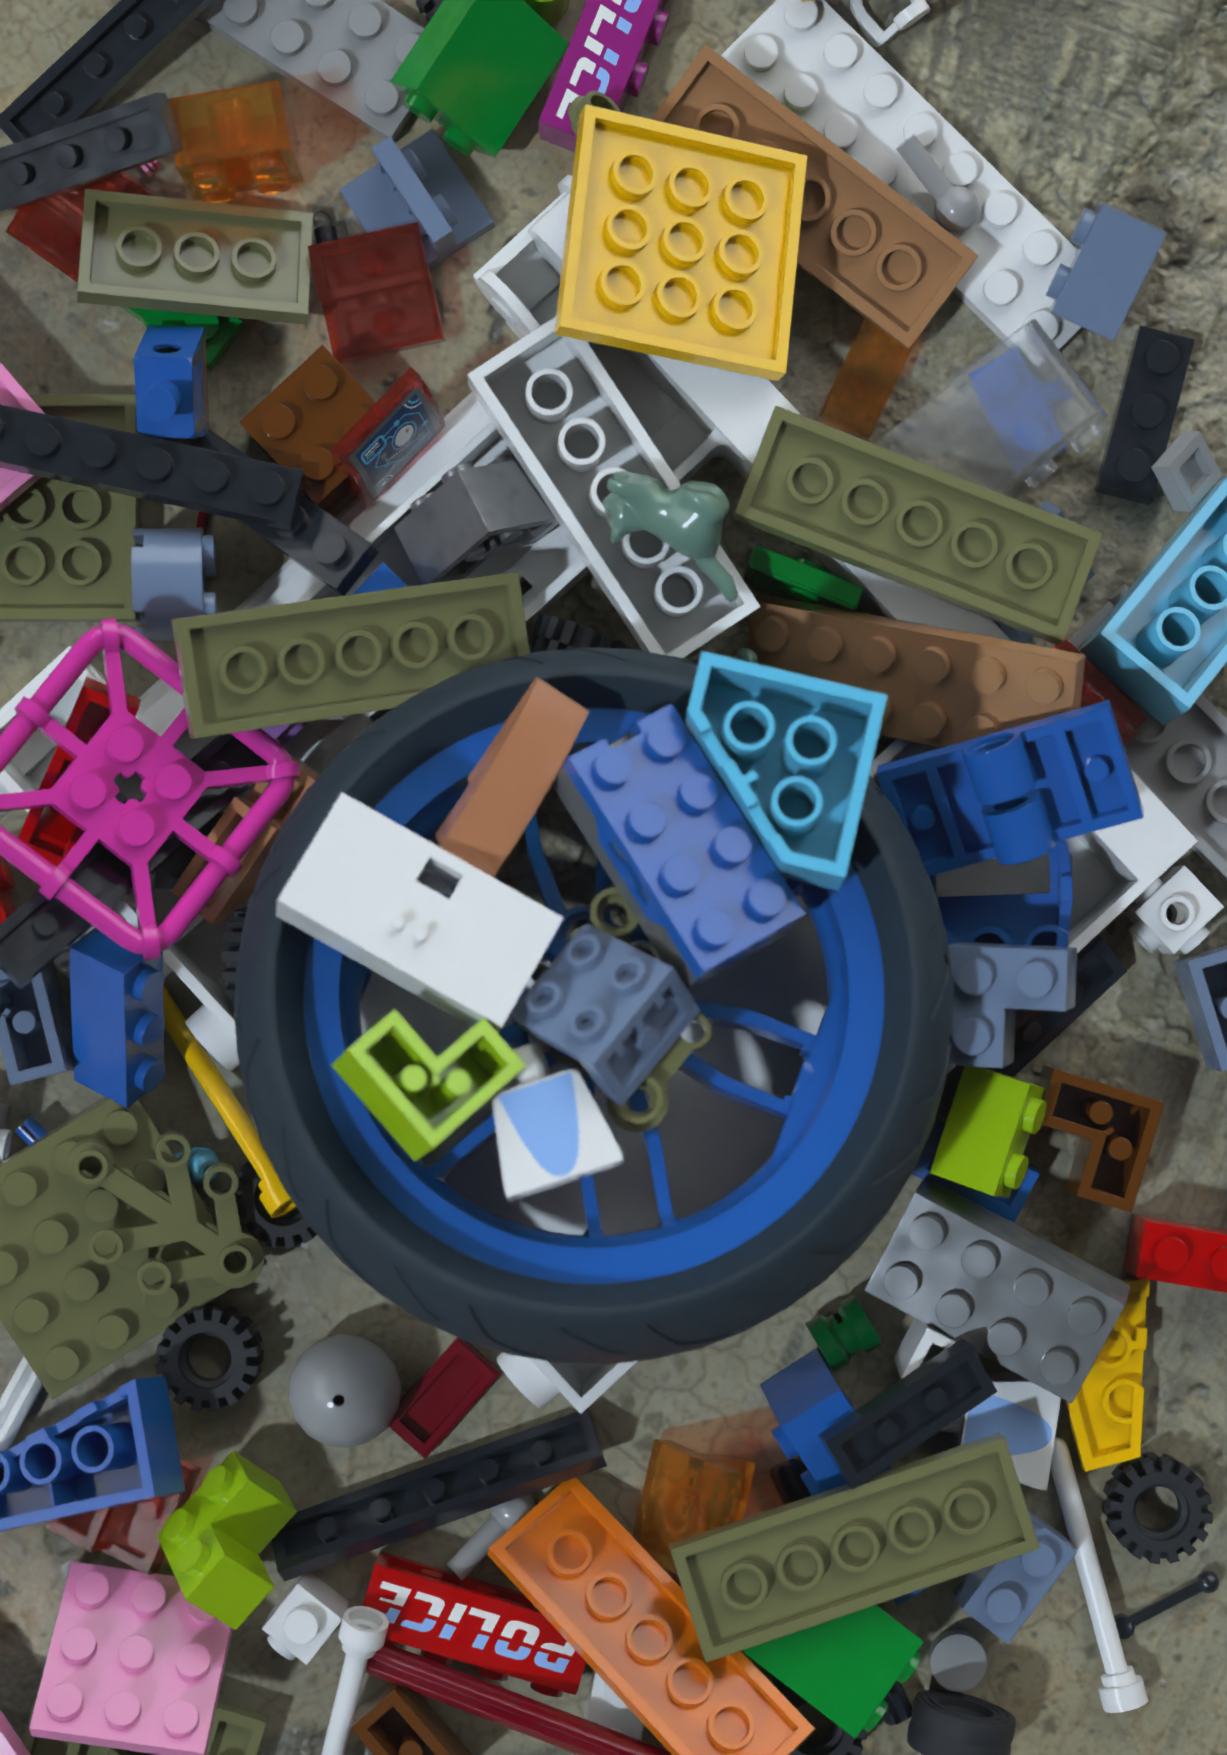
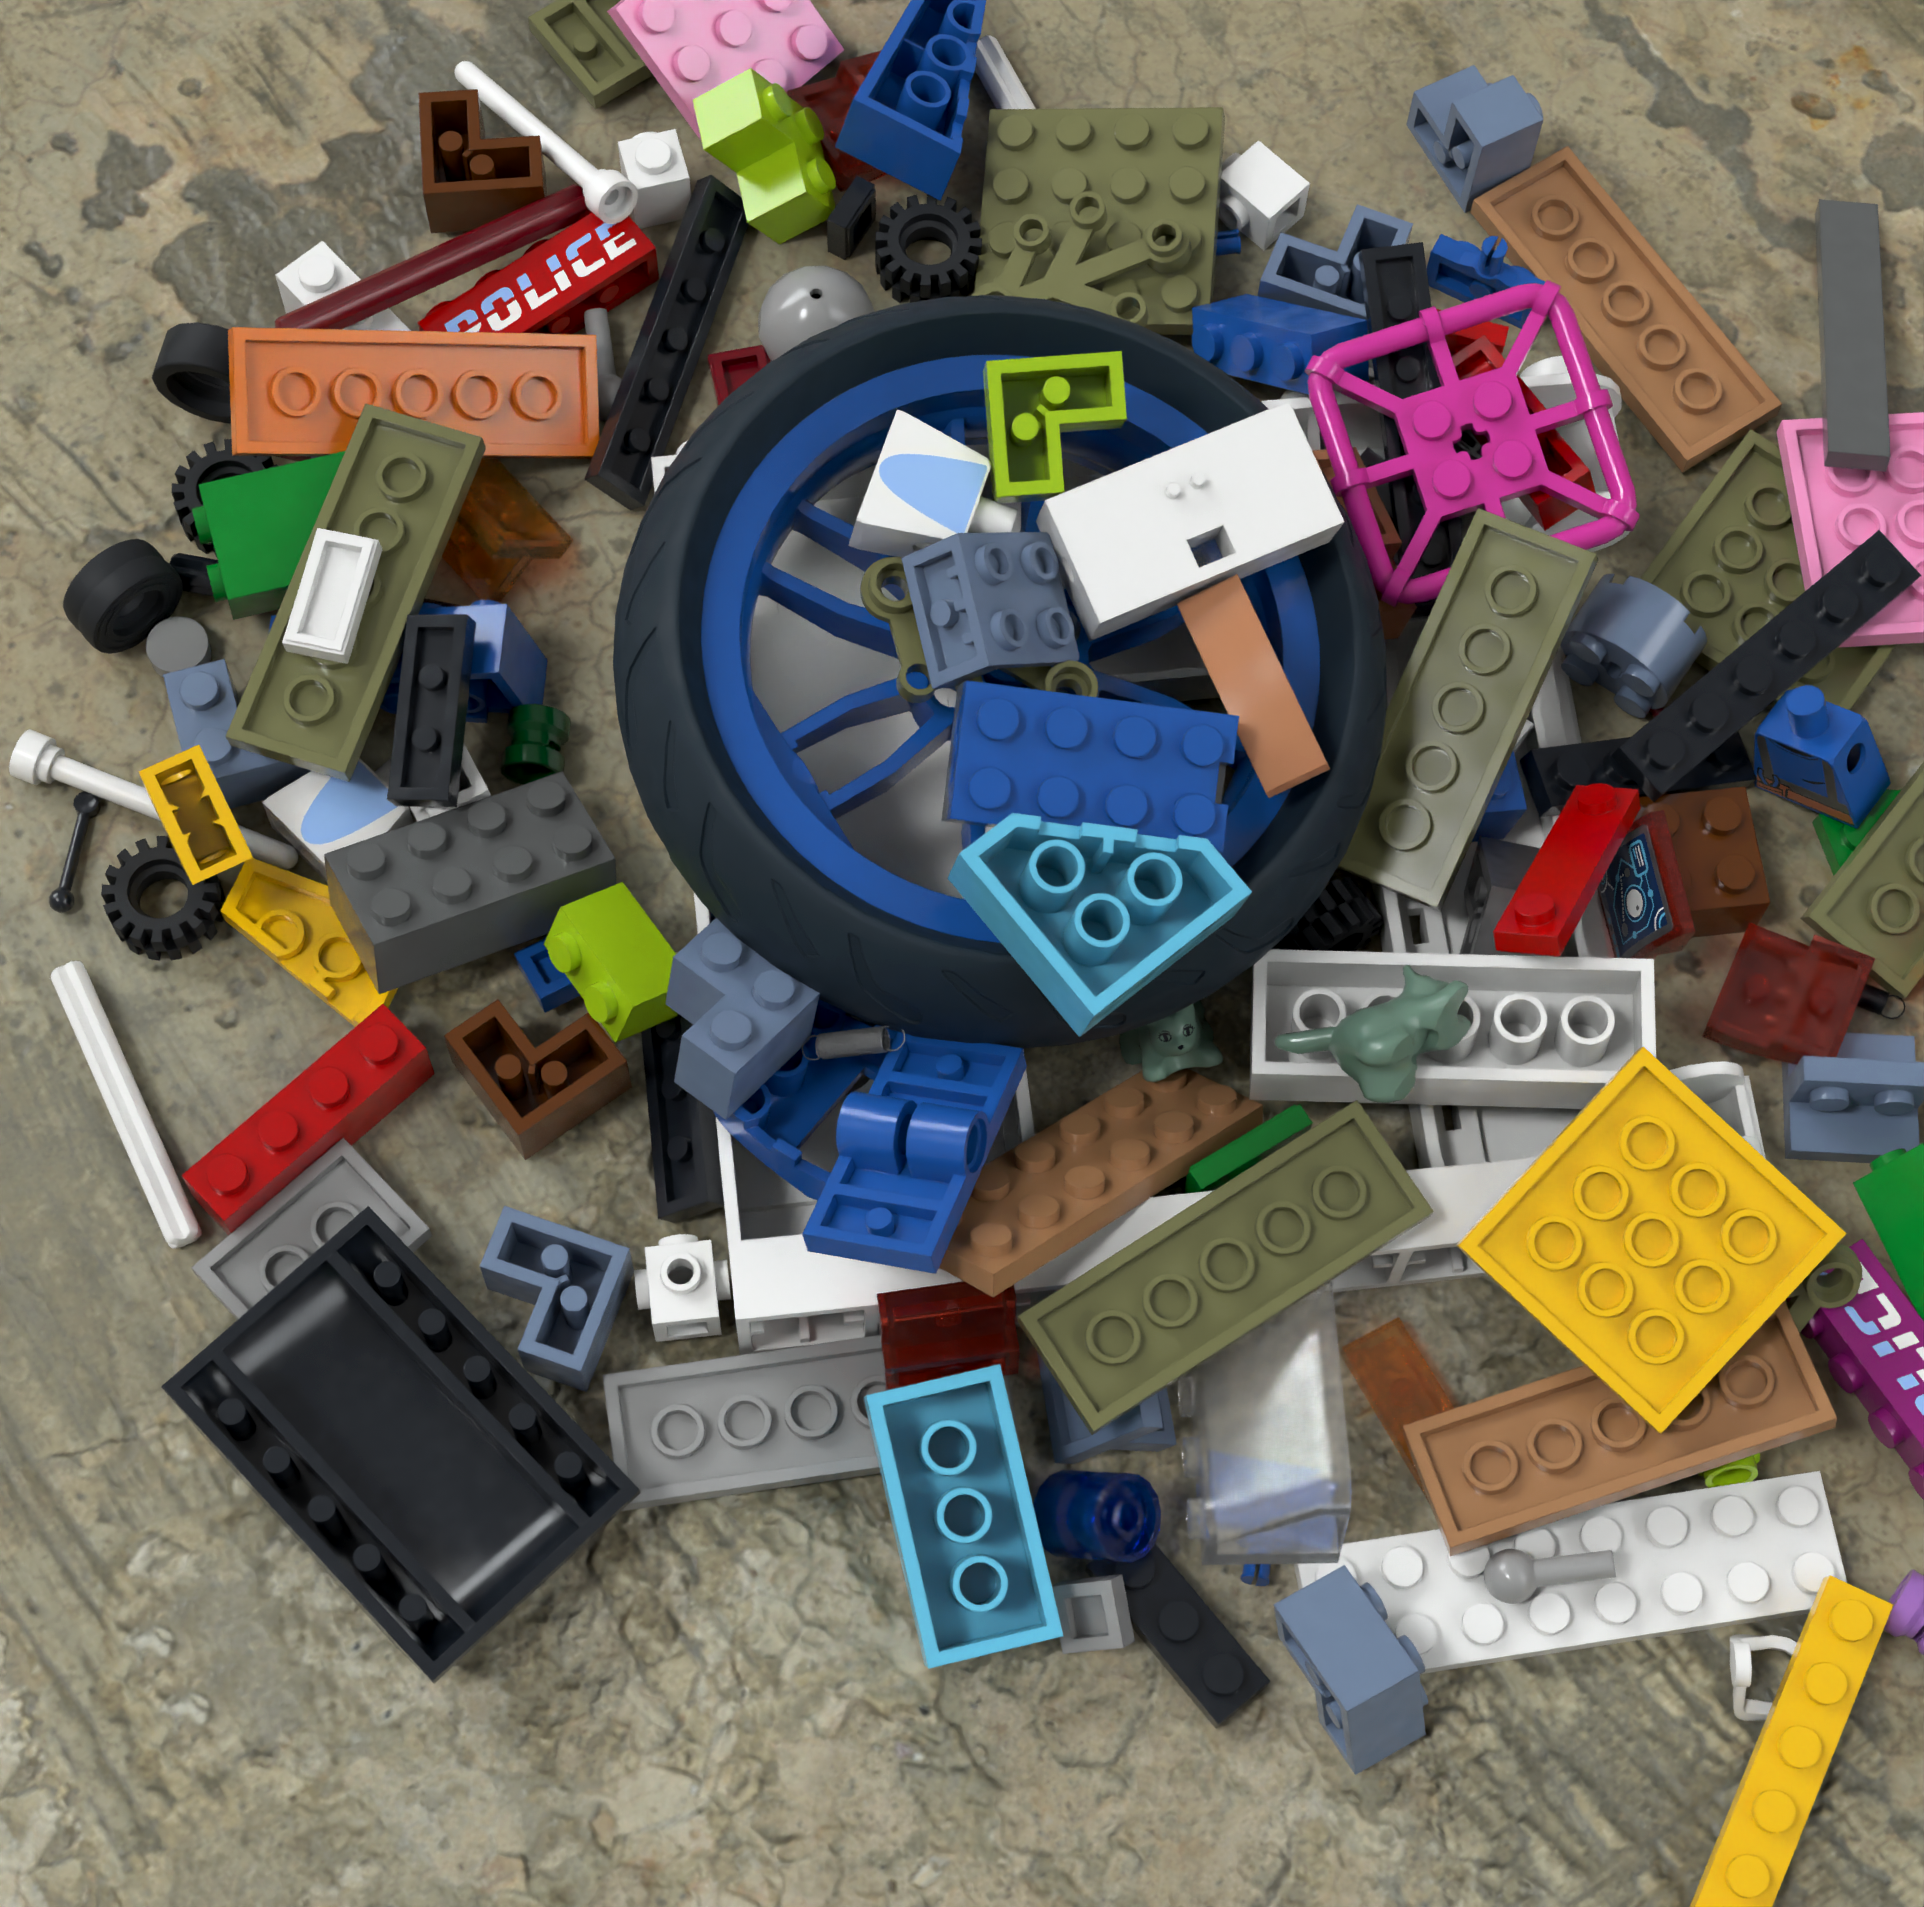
camera: 120 degrees right, 20 degrees down
(225, 1437) = (851, 218): none -> black tile
(439, 483) = (1567, 870): none -> red plate
(881, 1557) = (332, 595): none -> white tile
(951, 905) = (852, 1043): none -> light grey piece
(1114, 1526) = (195, 814): none -> yellow torso
(1127, 509) = (1097, 1515): none -> clear blue wheel

